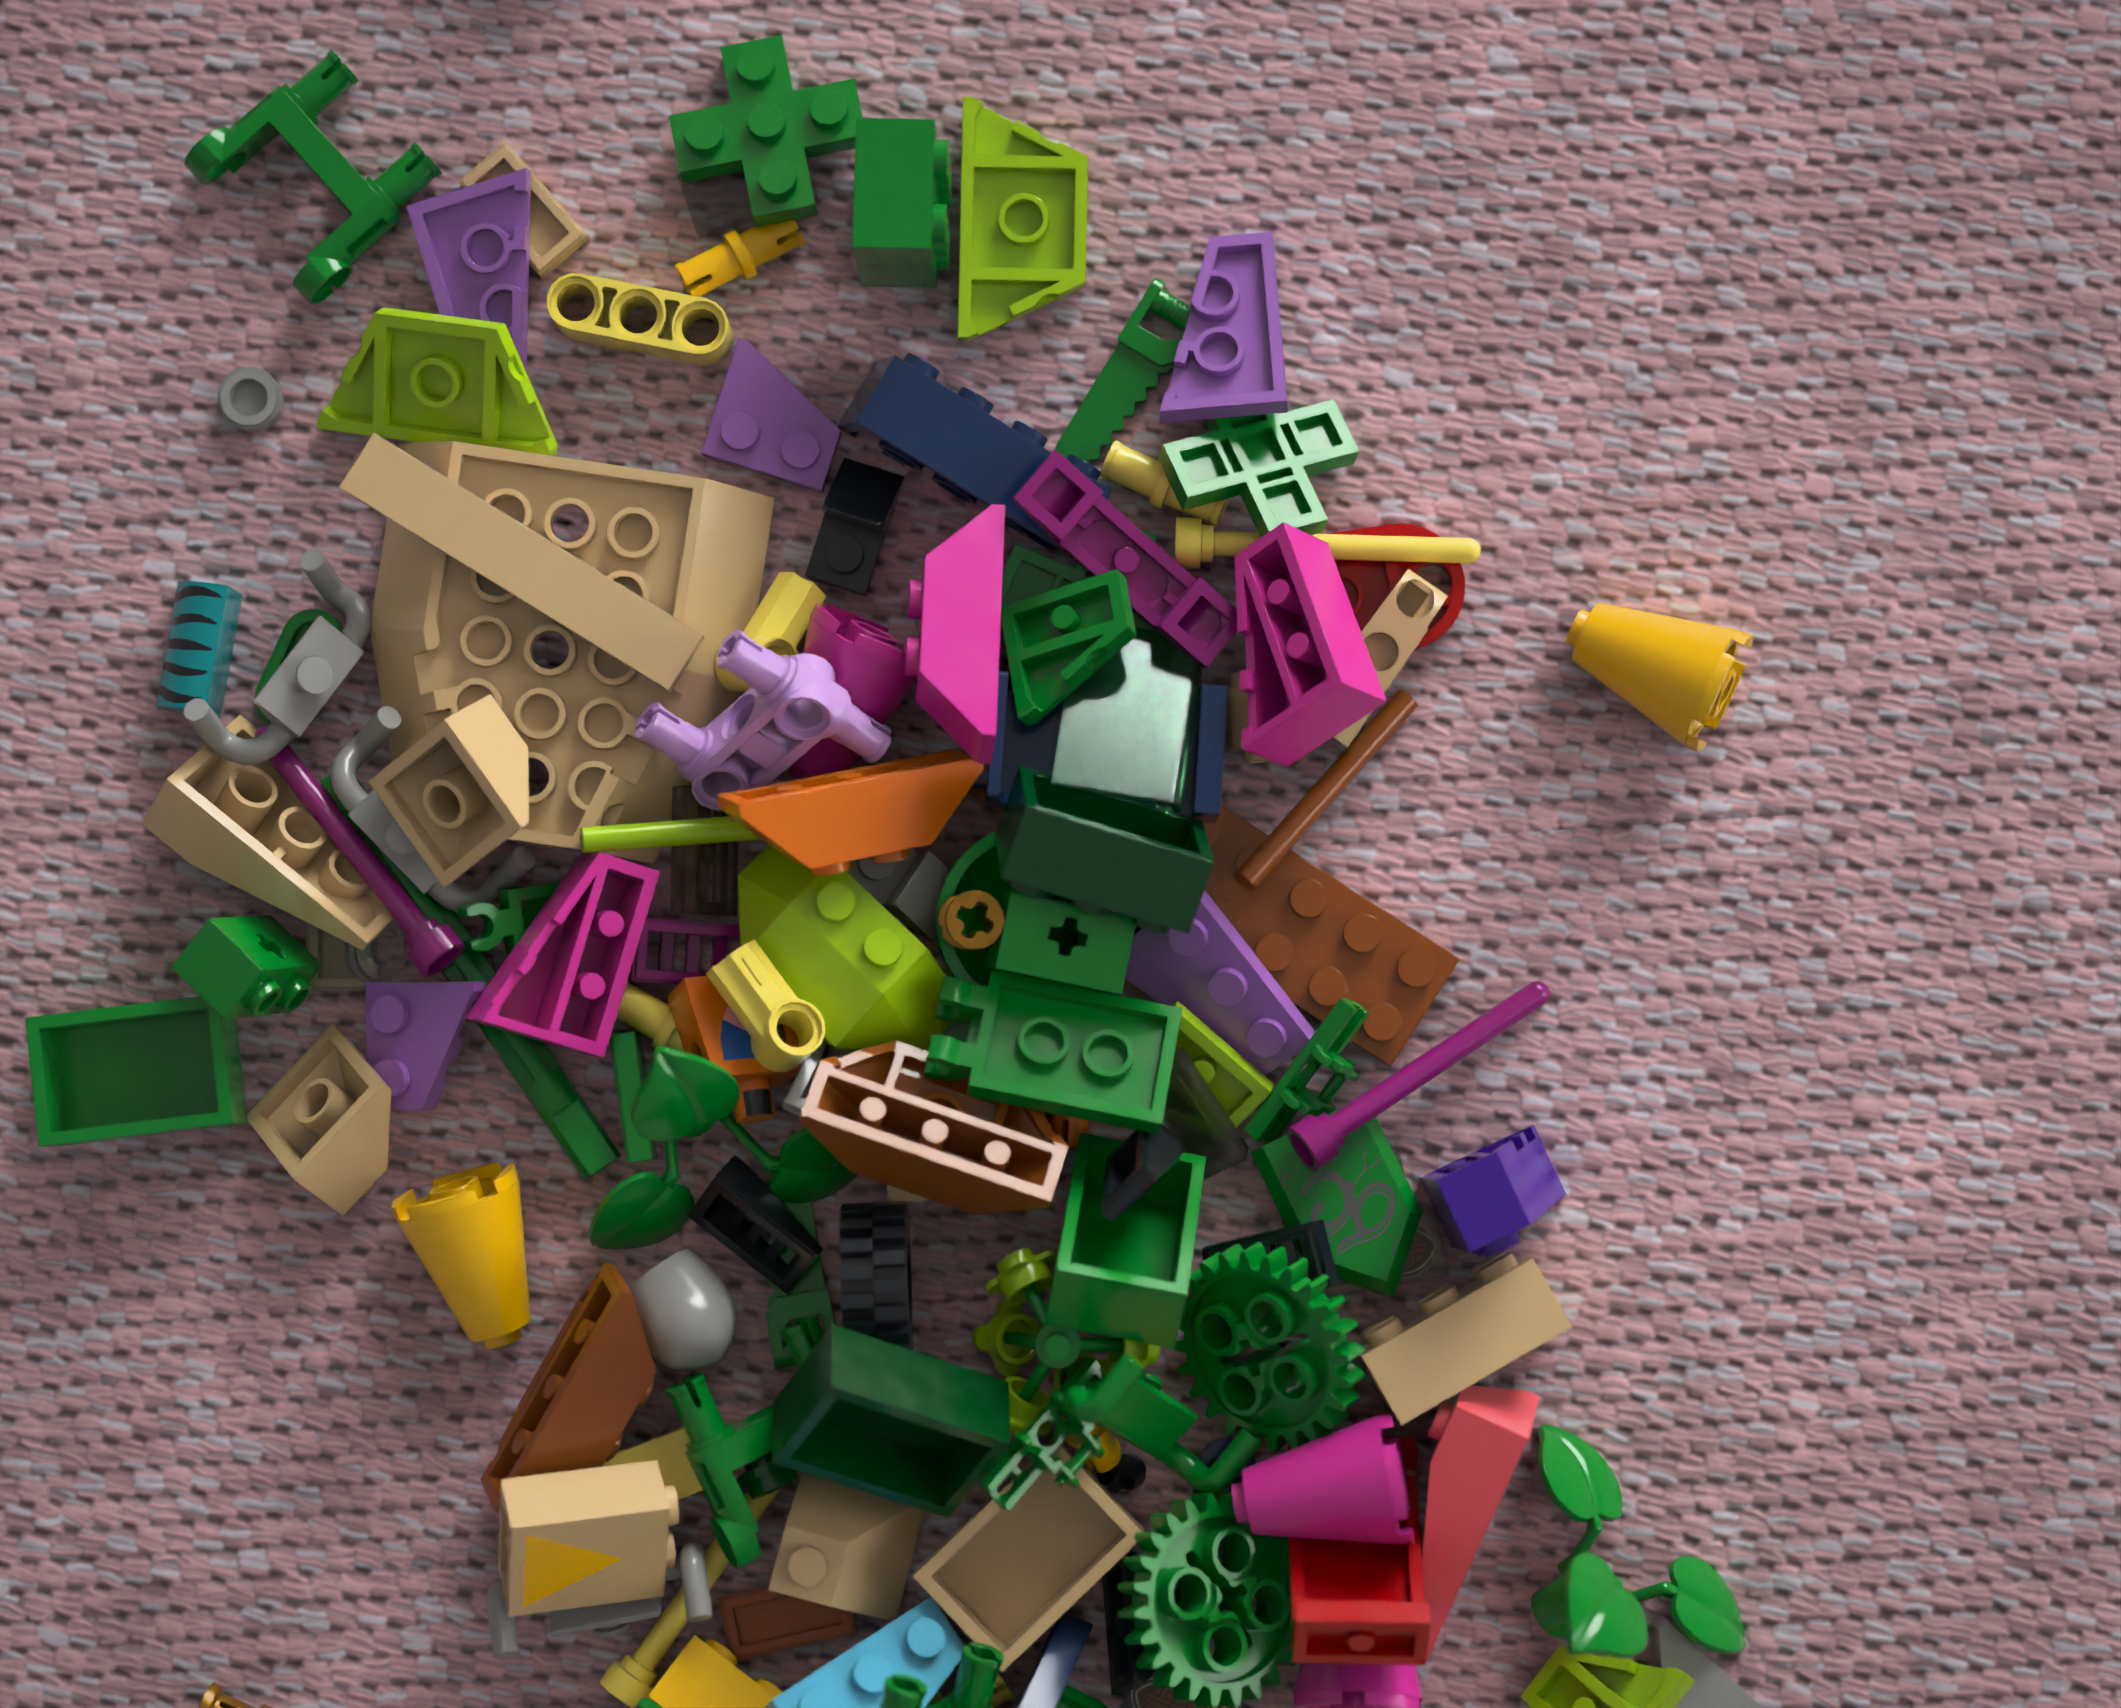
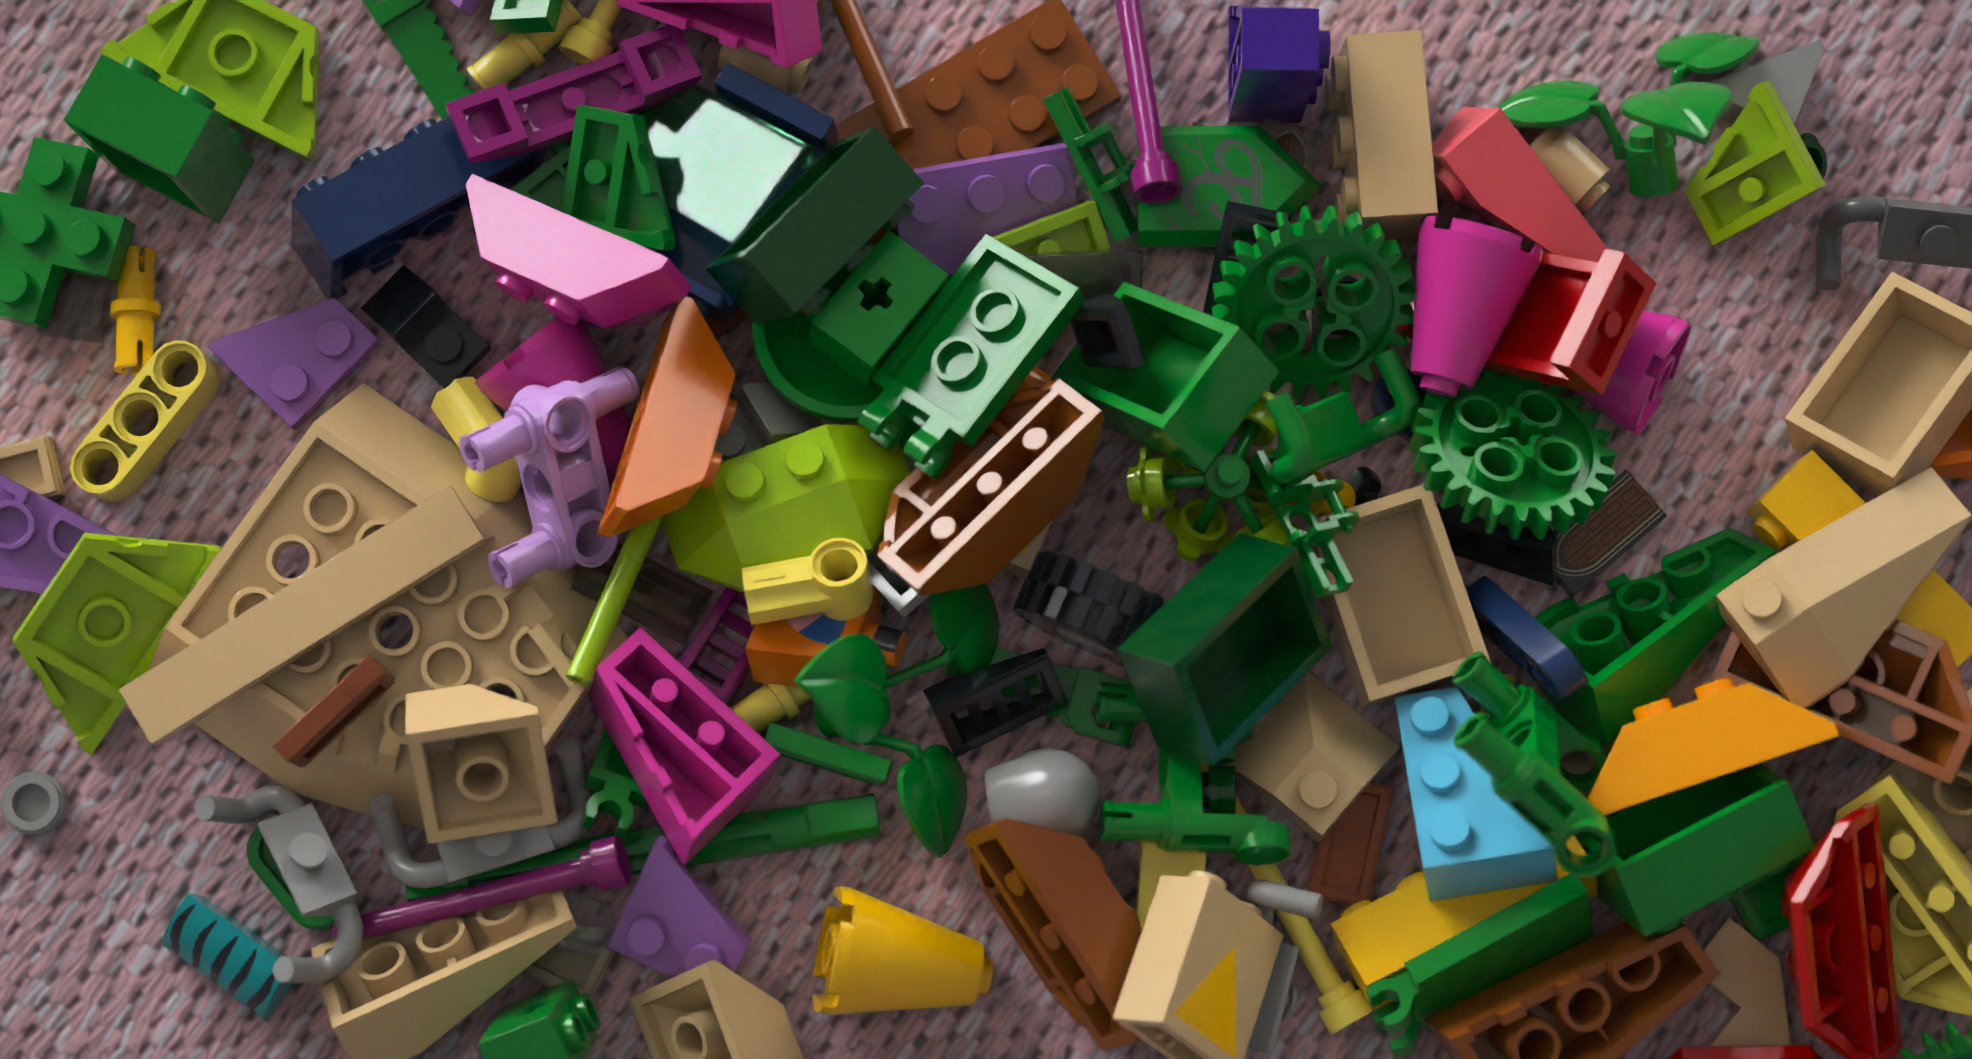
camera: 65 degrees left, 5 degrees down
(445, 638) = (335, 712): none -> copper tile
(988, 912) = (823, 356): pearl gold bush -> none
(1522, 1525) = (1572, 166): none -> tan brick

